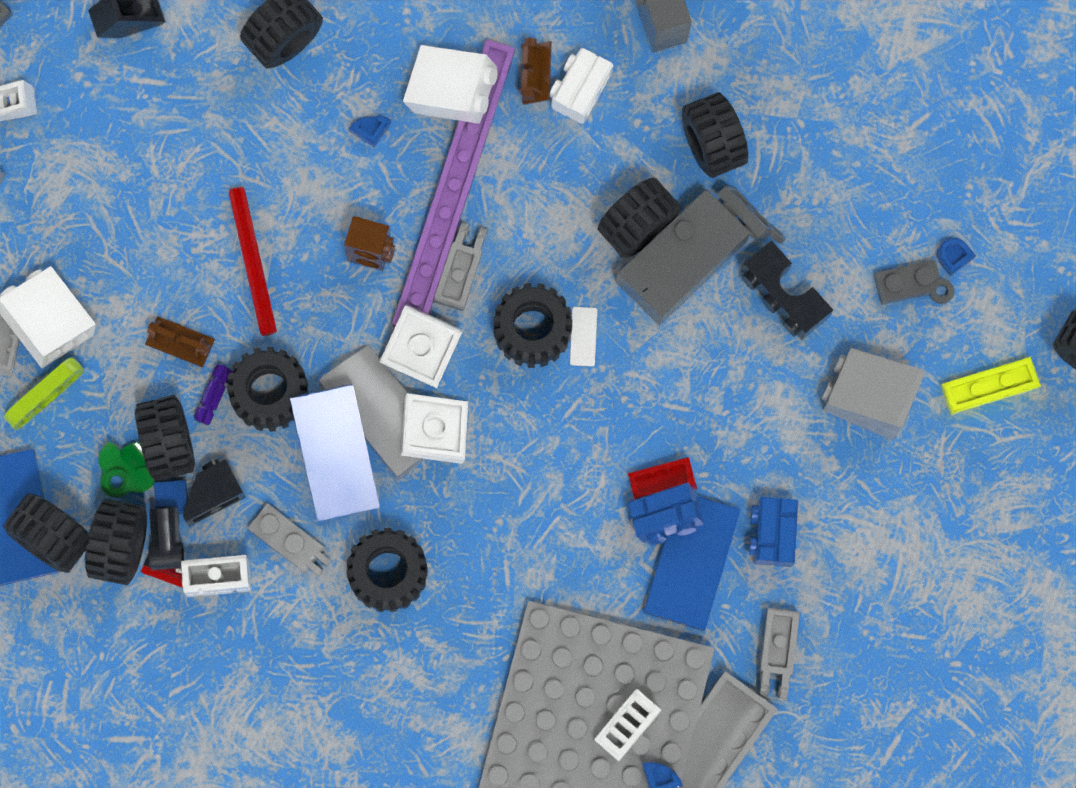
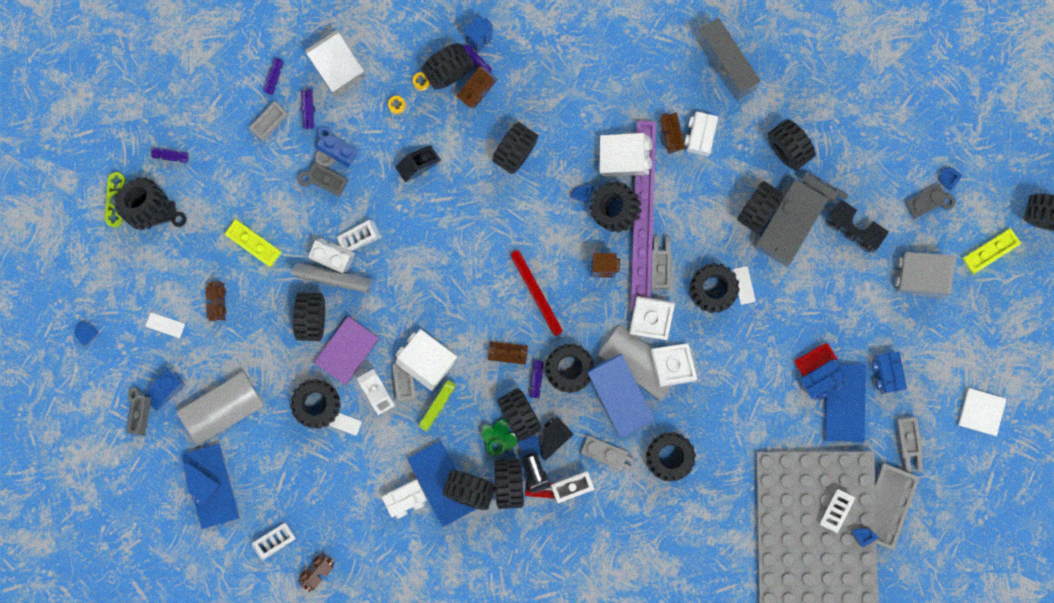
camera: 10 degrees left, 5 degrees up
(400, 141) = (605, 196): none -> black tyre
(907, 634) = (982, 412): none -> white tile

